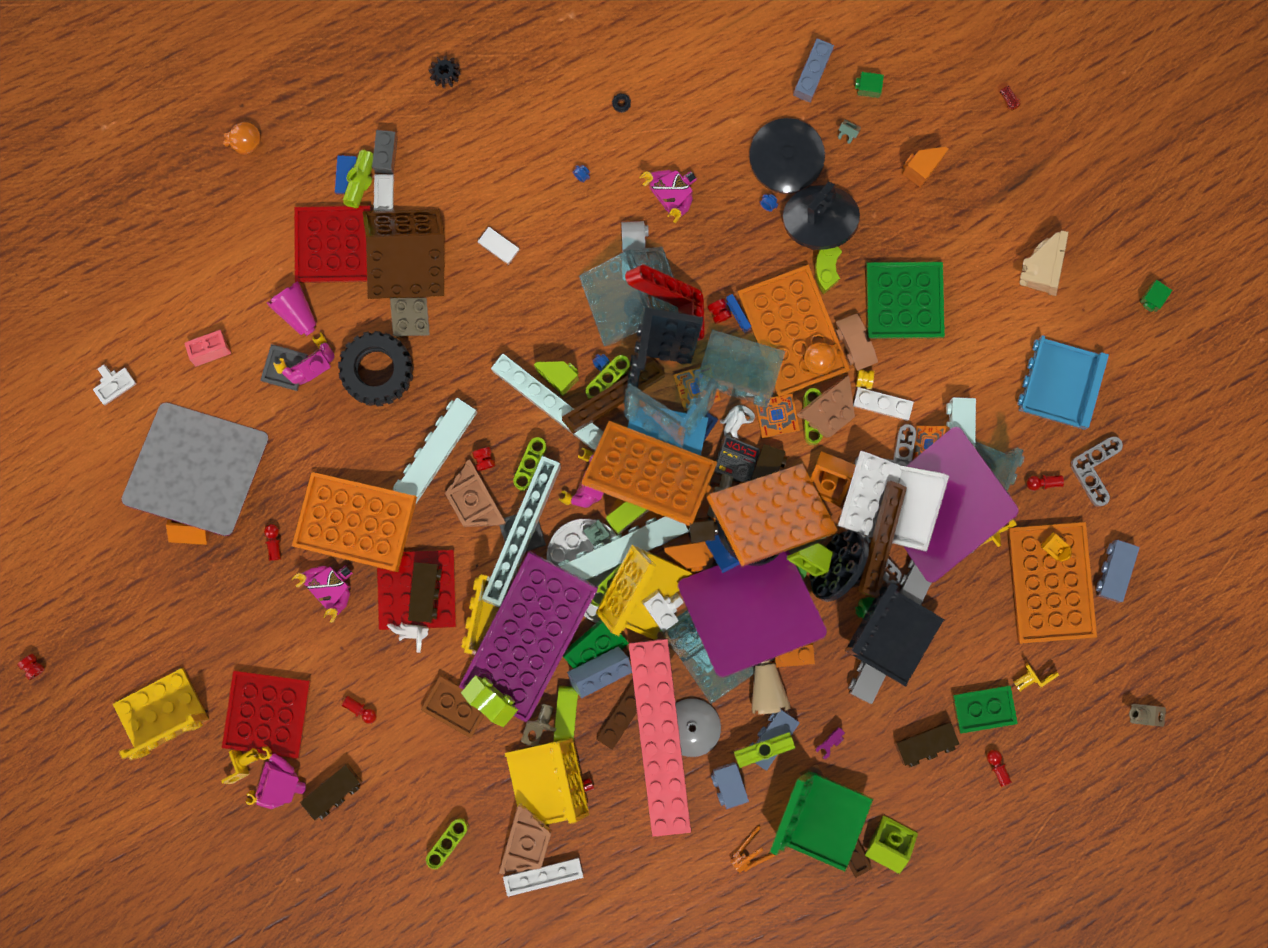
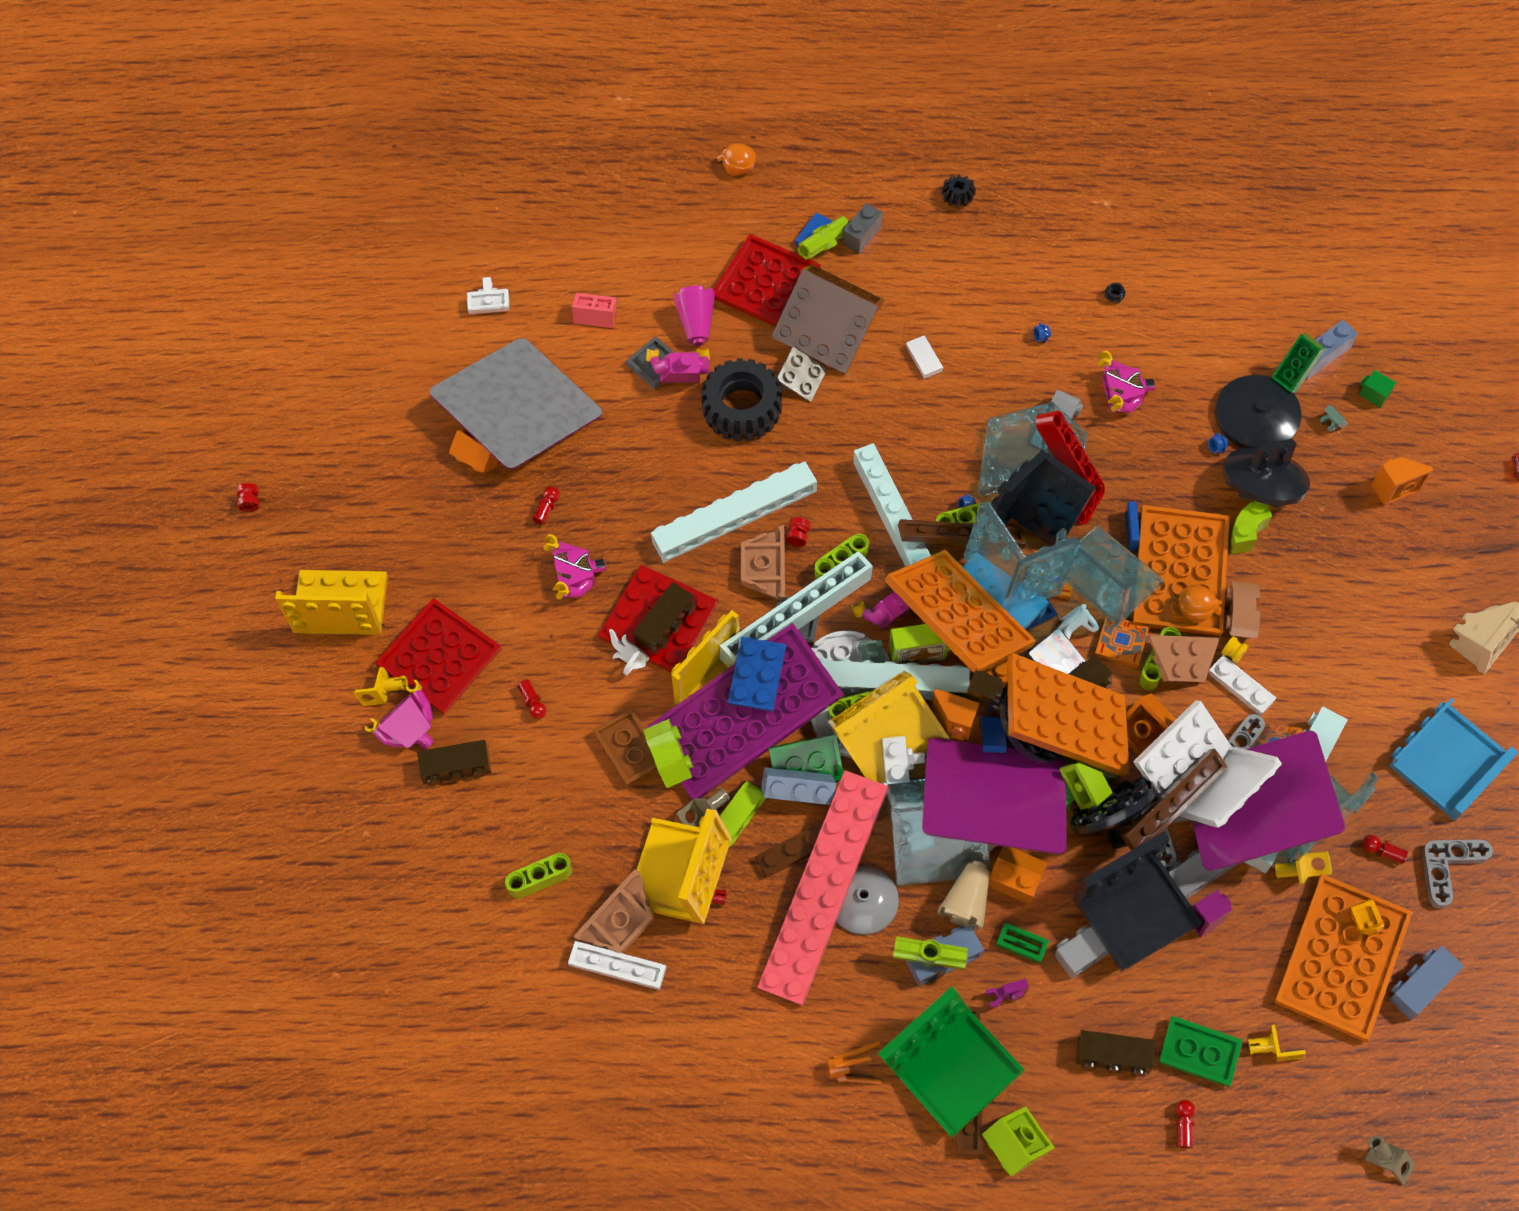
camera: 30 degrees right, 20 degrees down
(354, 521) = (637, 520): orange plate -> none
(383, 192) = (842, 261): white tile -> none
(524, 607) = (757, 674): none -> blue plate
(558, 374) = (917, 489): lime slope -> none
(719, 311) = (1114, 515): red wheel -> none
(730, 785) = (872, 969): sand blue brick -> none
(800, 99) = (1298, 362): none -> green piece
(806, 699) = (1018, 951): none -> green tile
(905, 300) = (1316, 598): green plate -> none
(946, 604) = (1212, 912): none -> magenta brick

